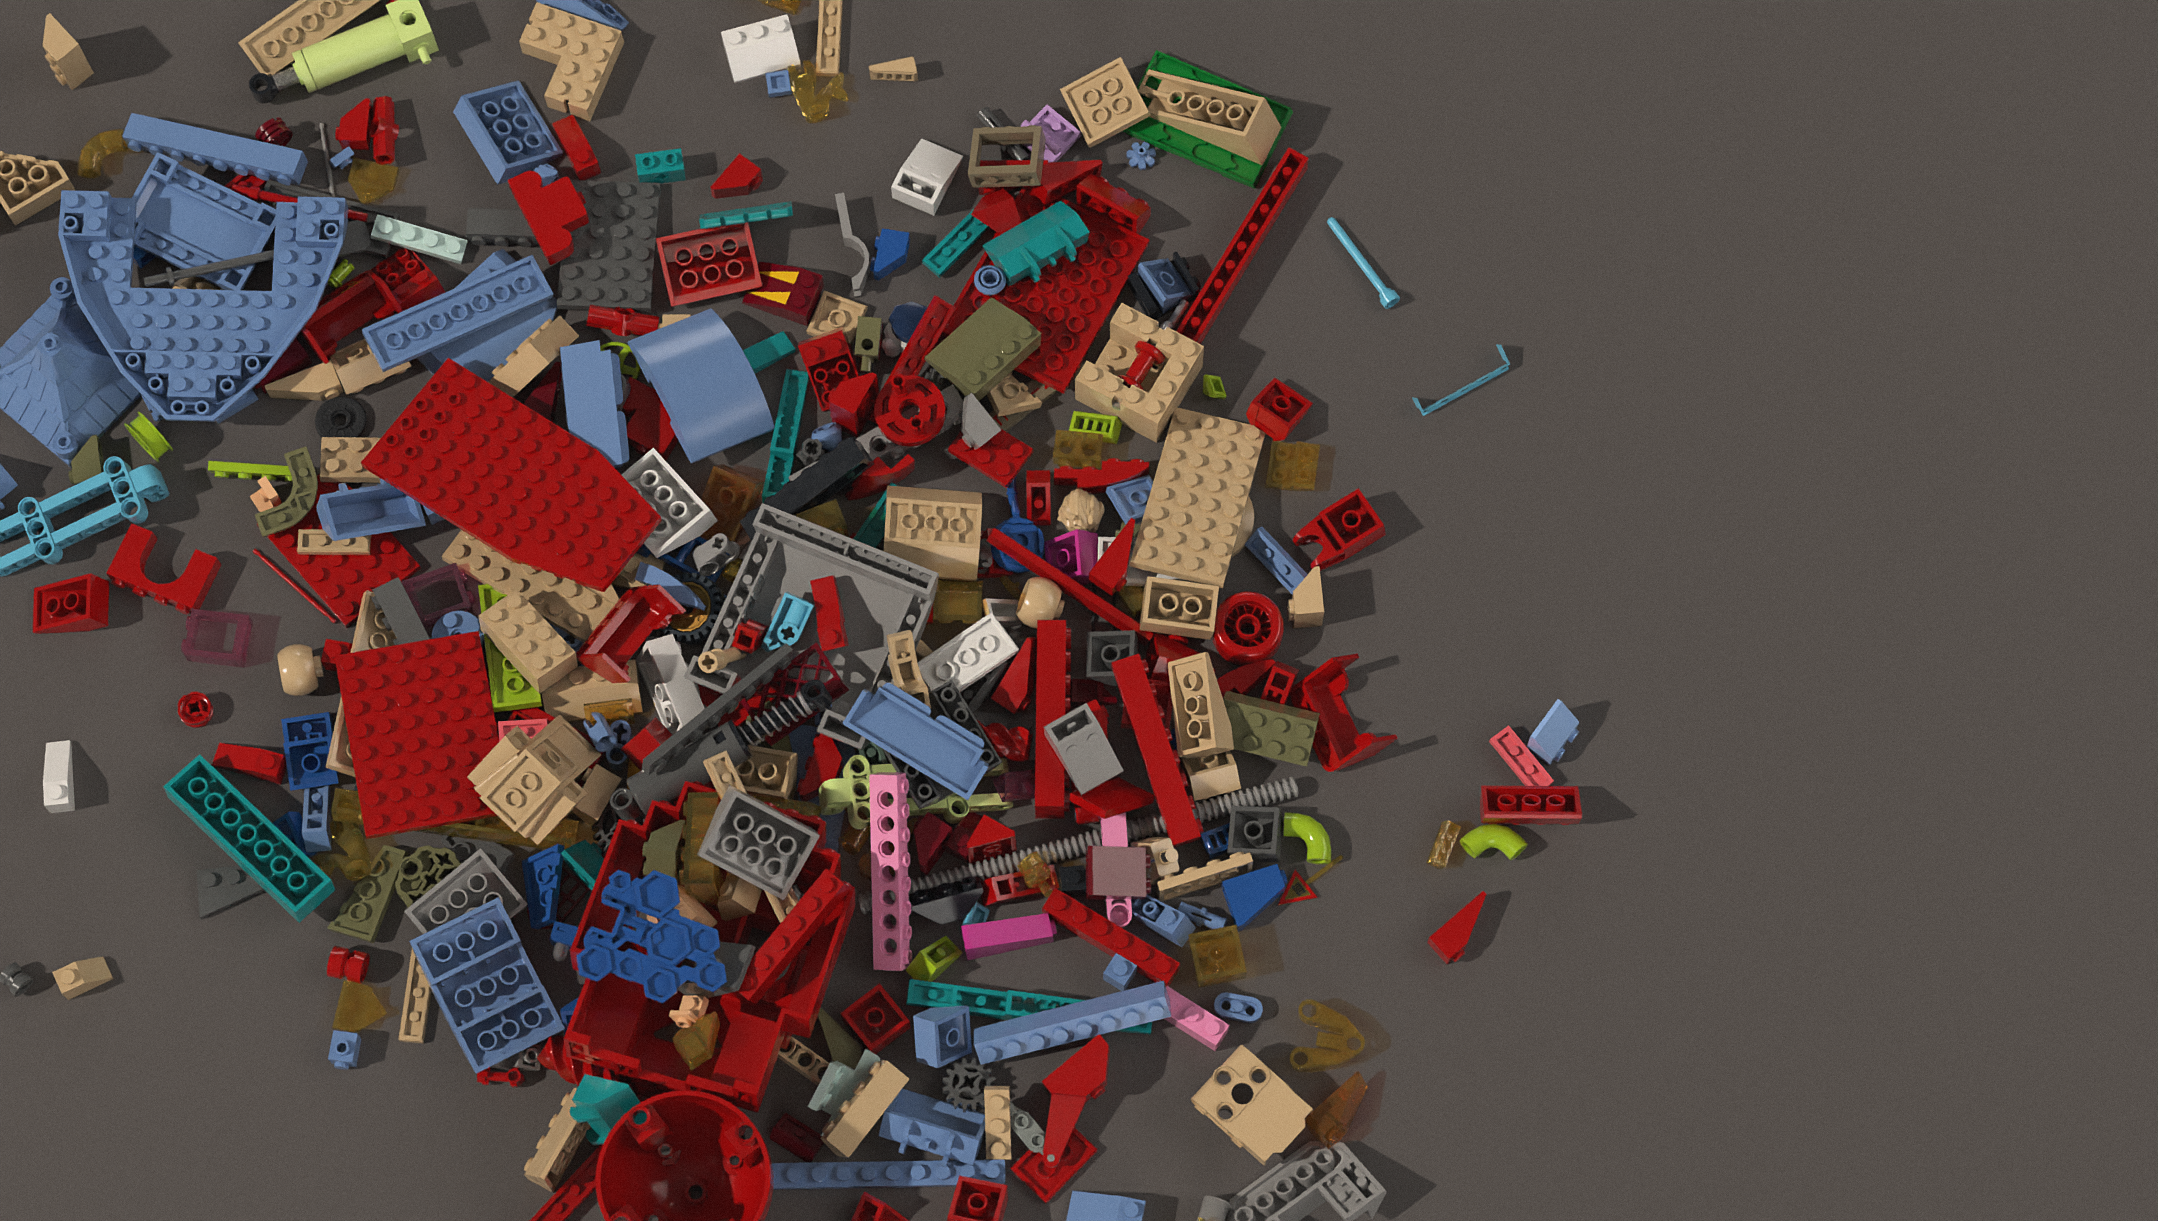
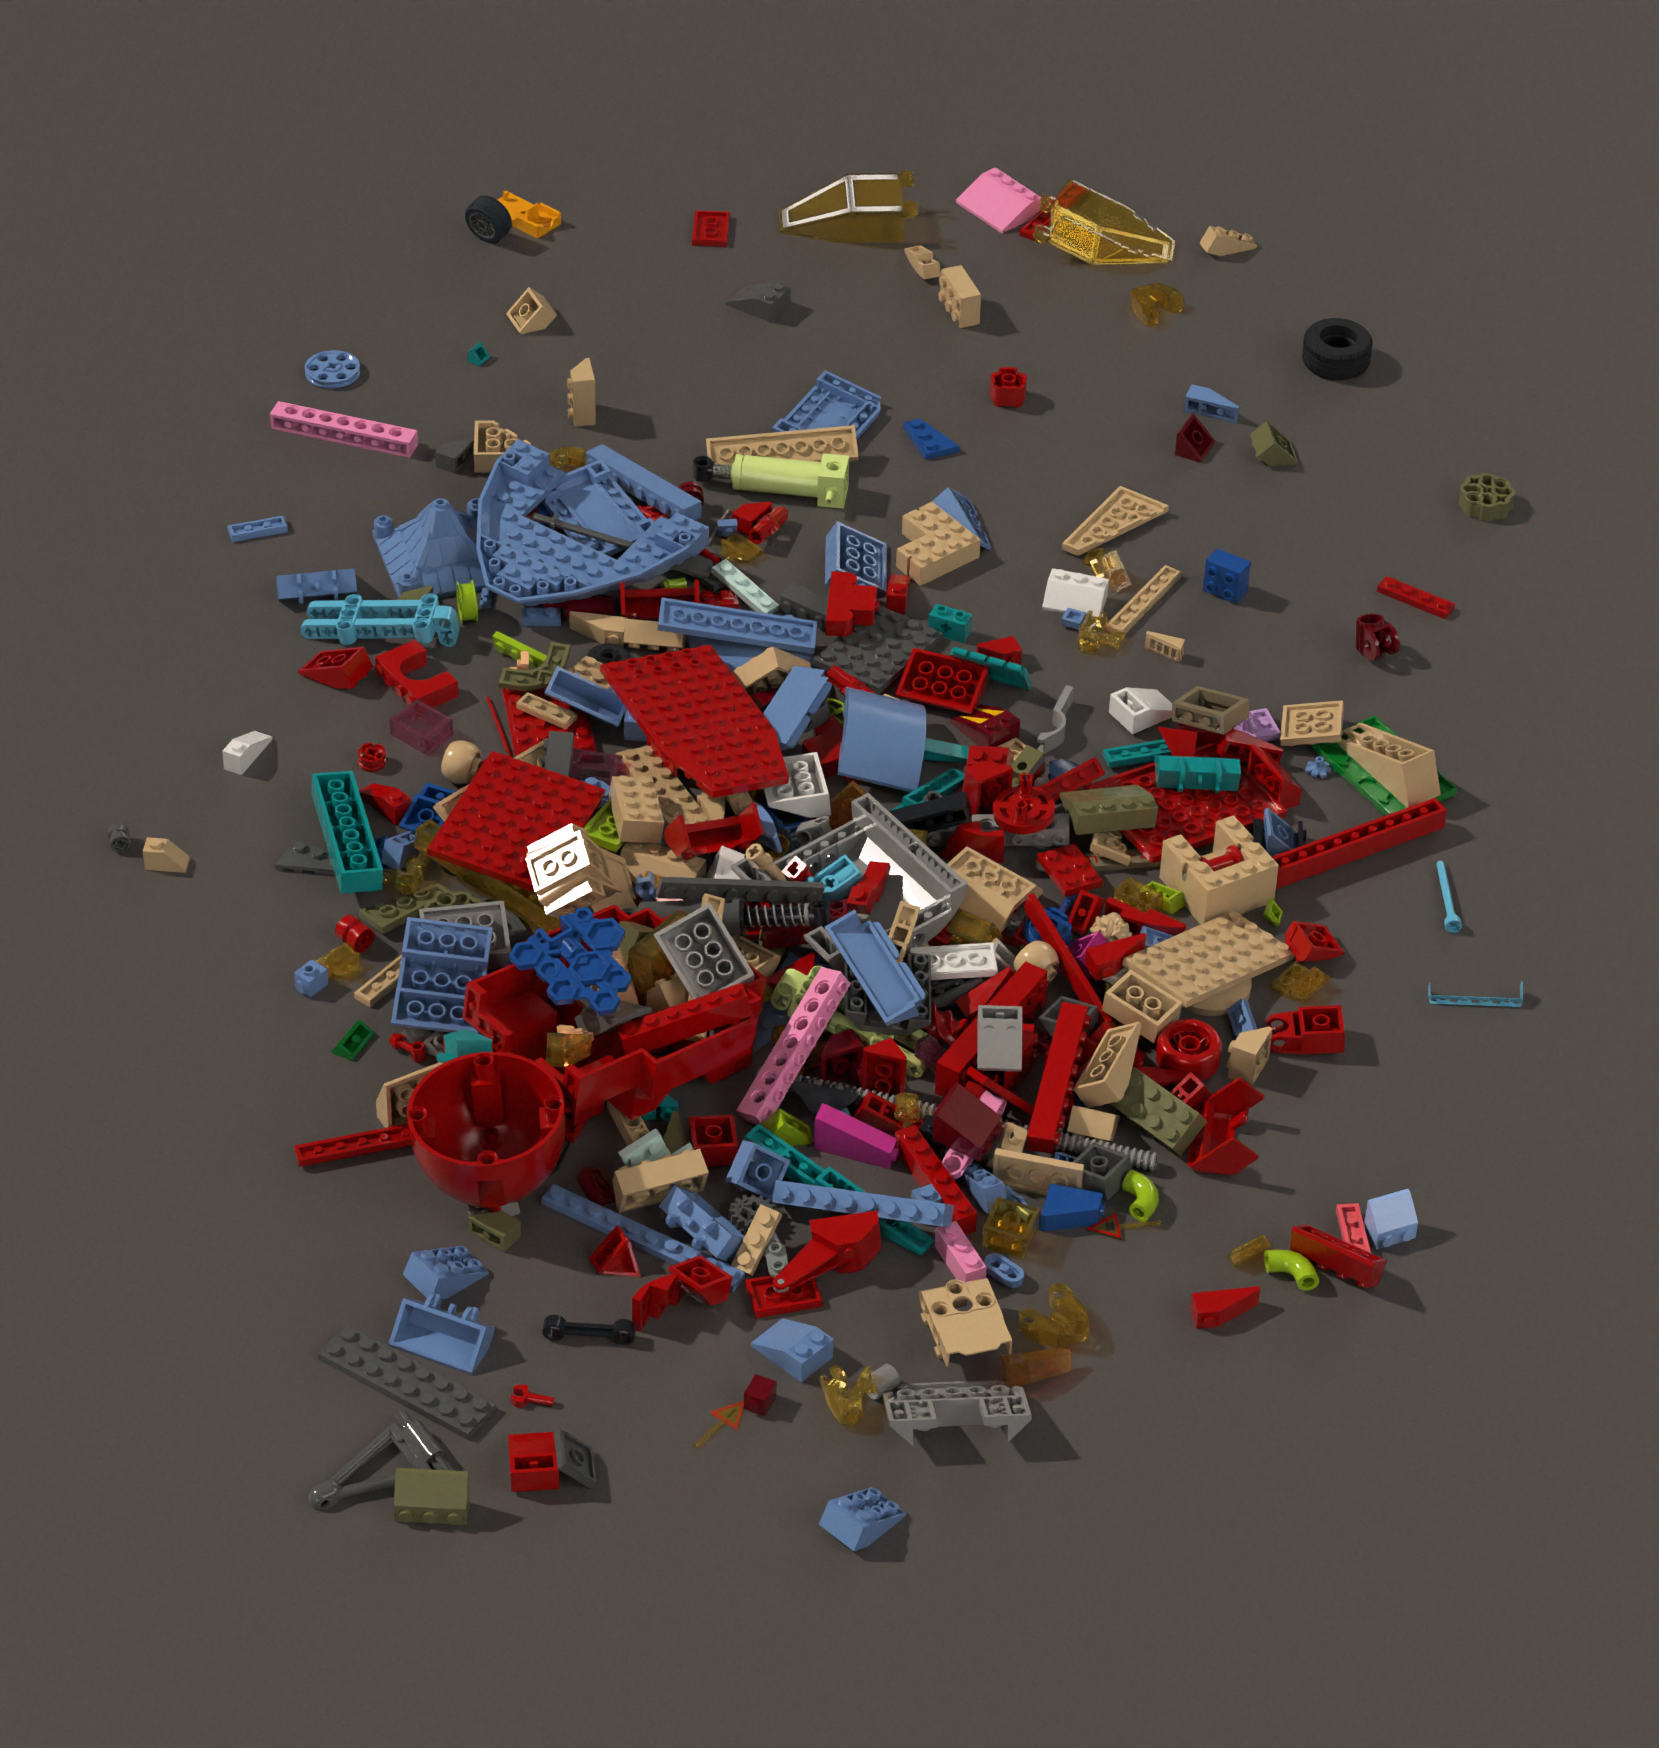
camera: 30 degrees right, 30 degrees down
(439, 1099) = (353, 1040): none -> green slope
(892, 252) = (1082, 737): blue slope -> none
(976, 423) = (1069, 840): light grey slope -> none
(990, 280) = (1143, 771): medium blue cone -> none

